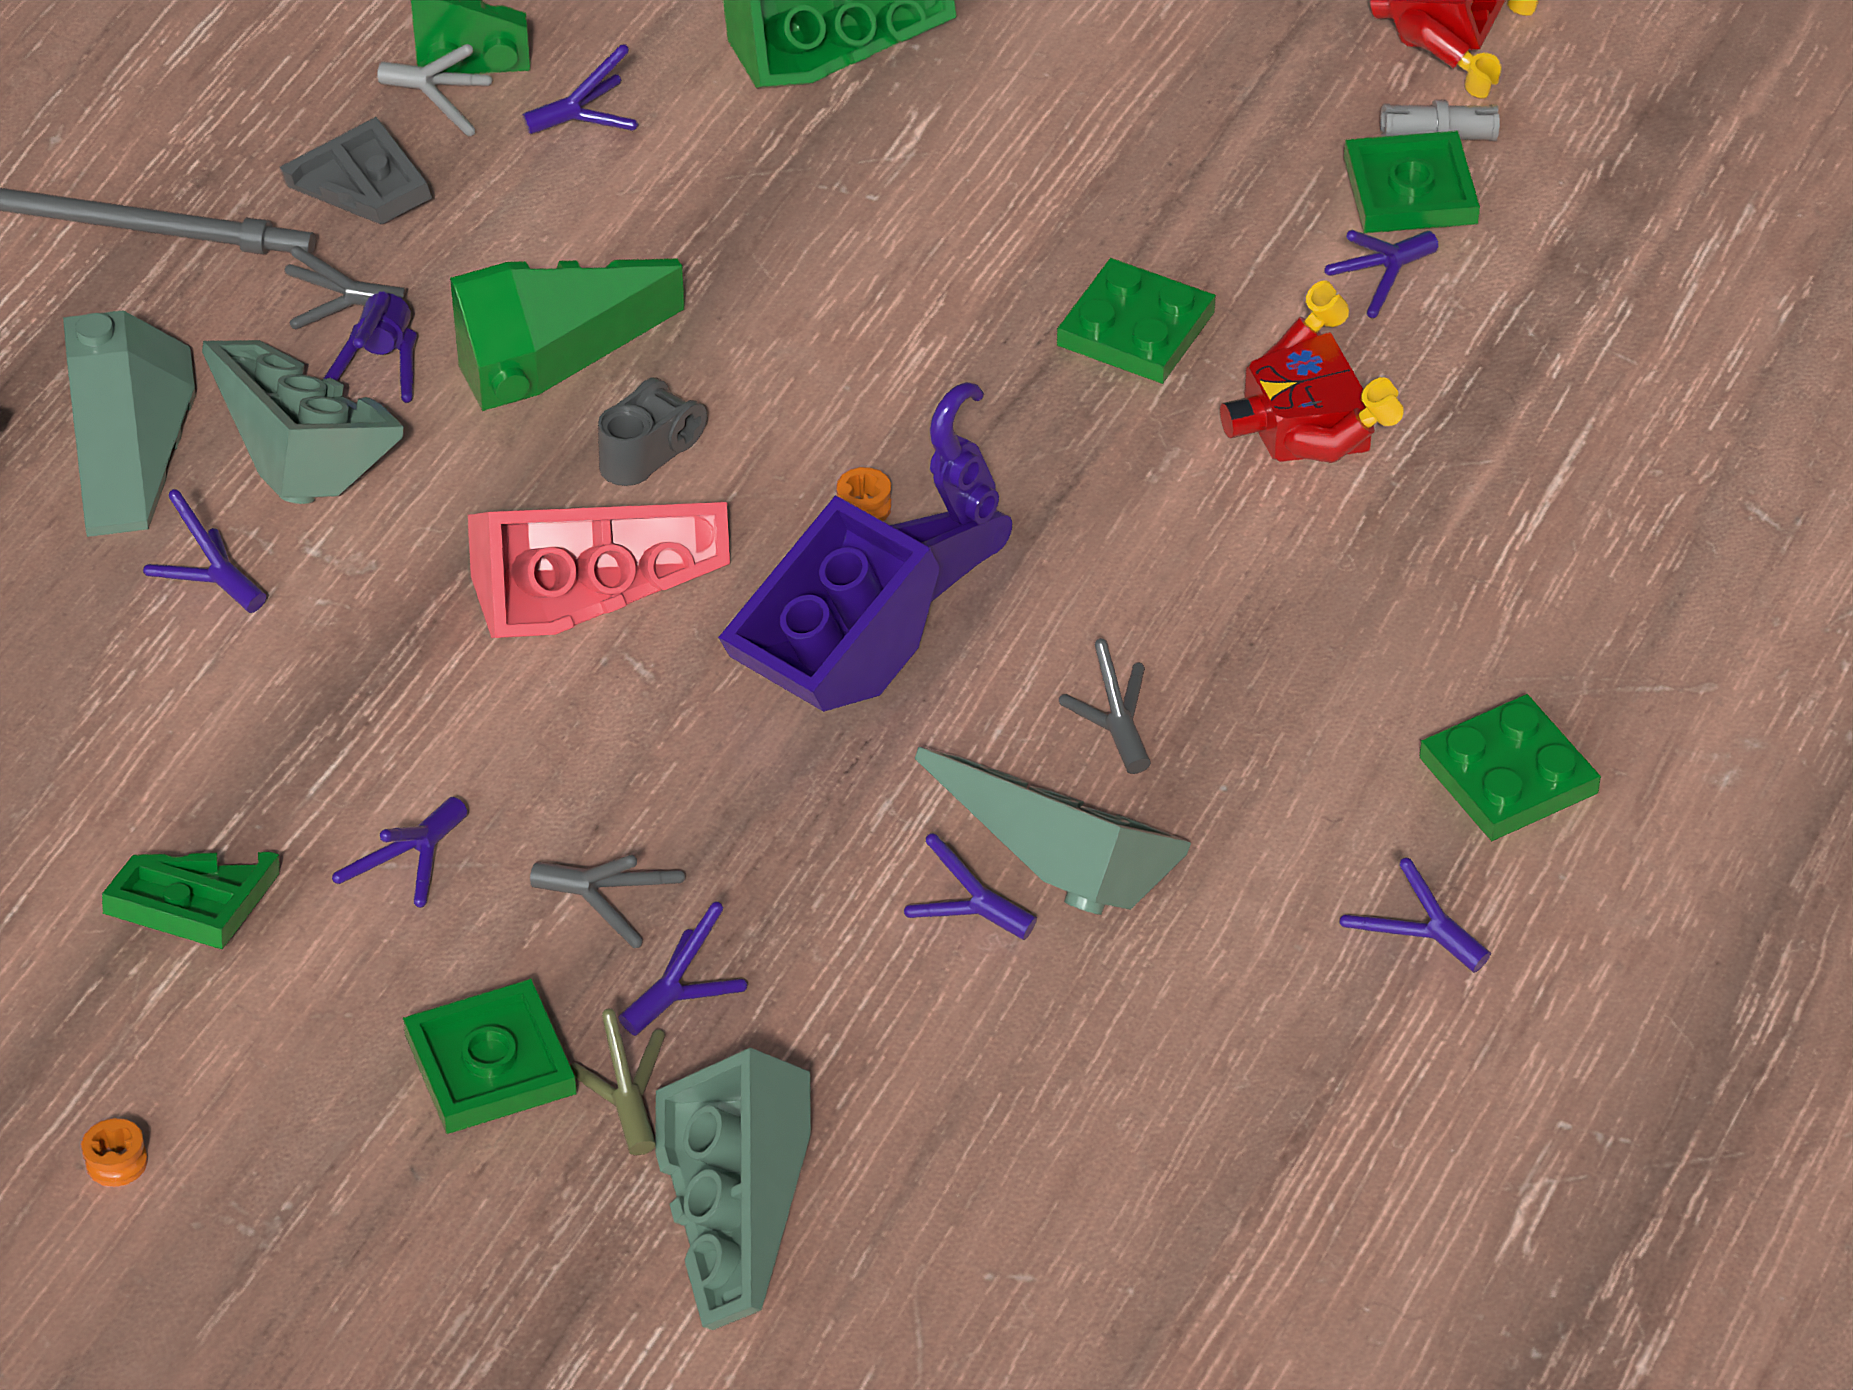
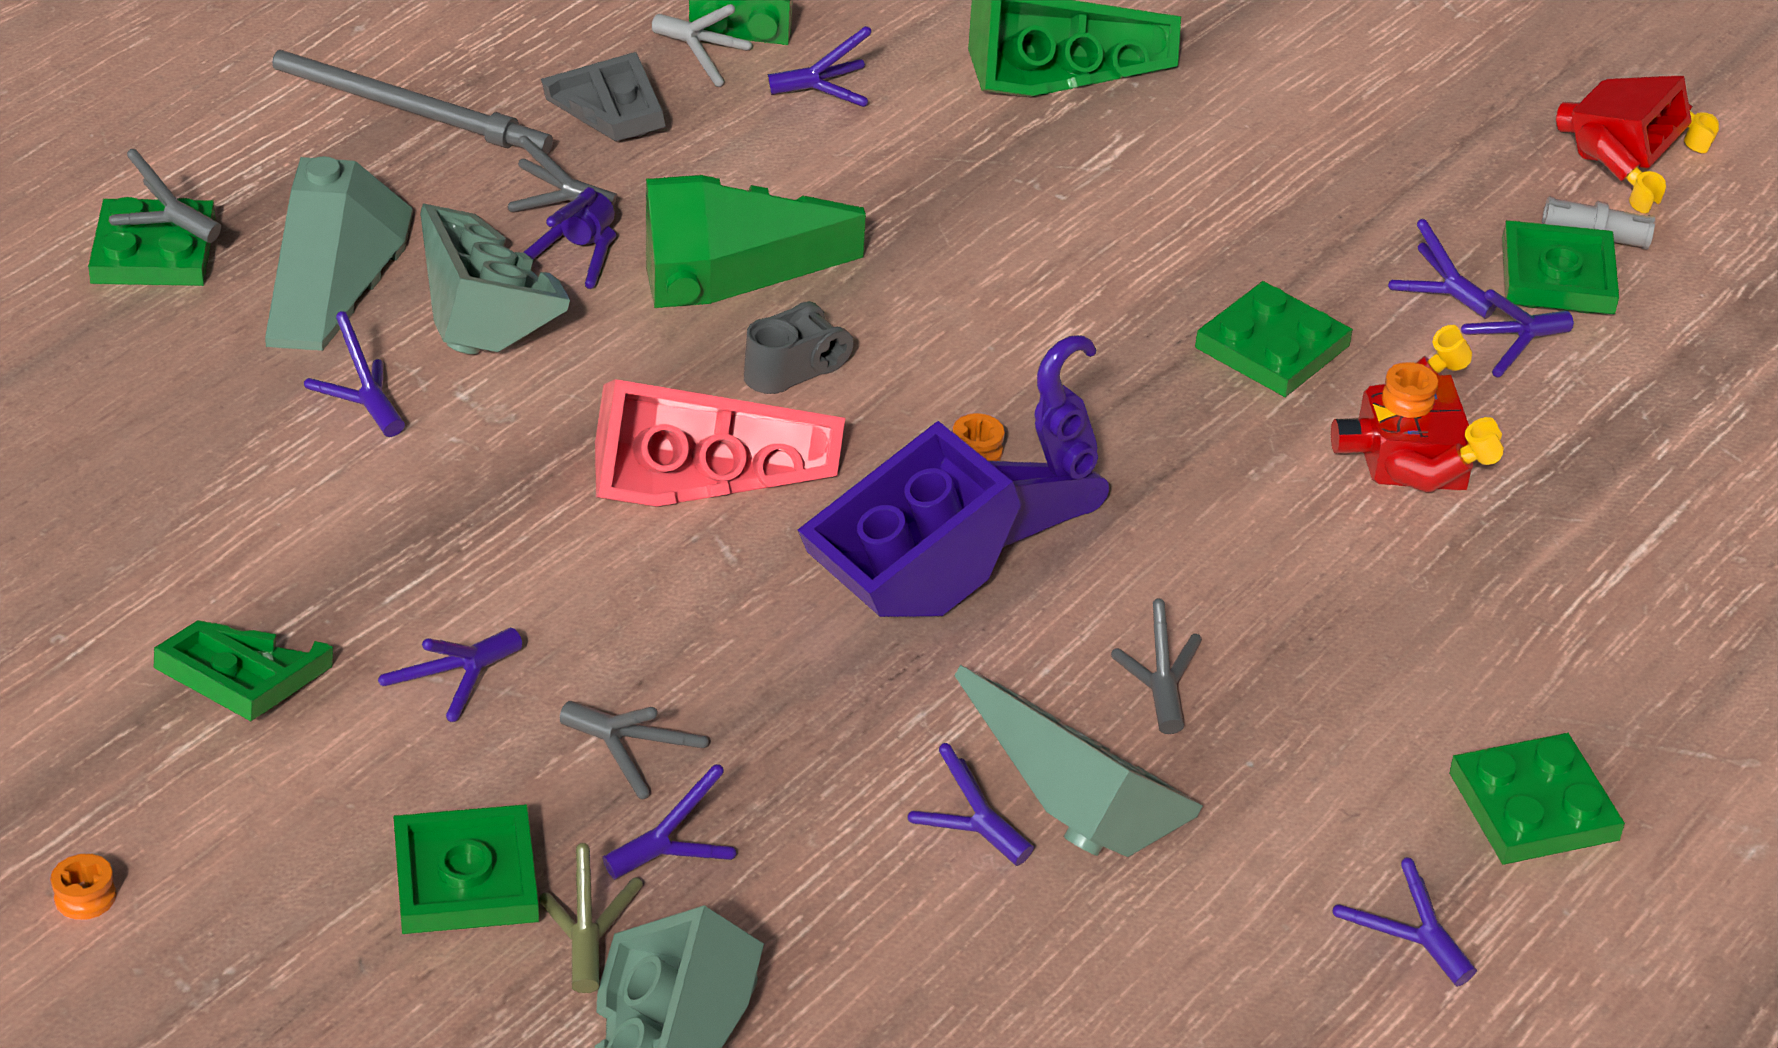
camera: 10 degrees right, 5 degrees down
(1294, 359) = (1409, 389): none -> orange bush
(1308, 221) = (1454, 282): none -> dark purple plant

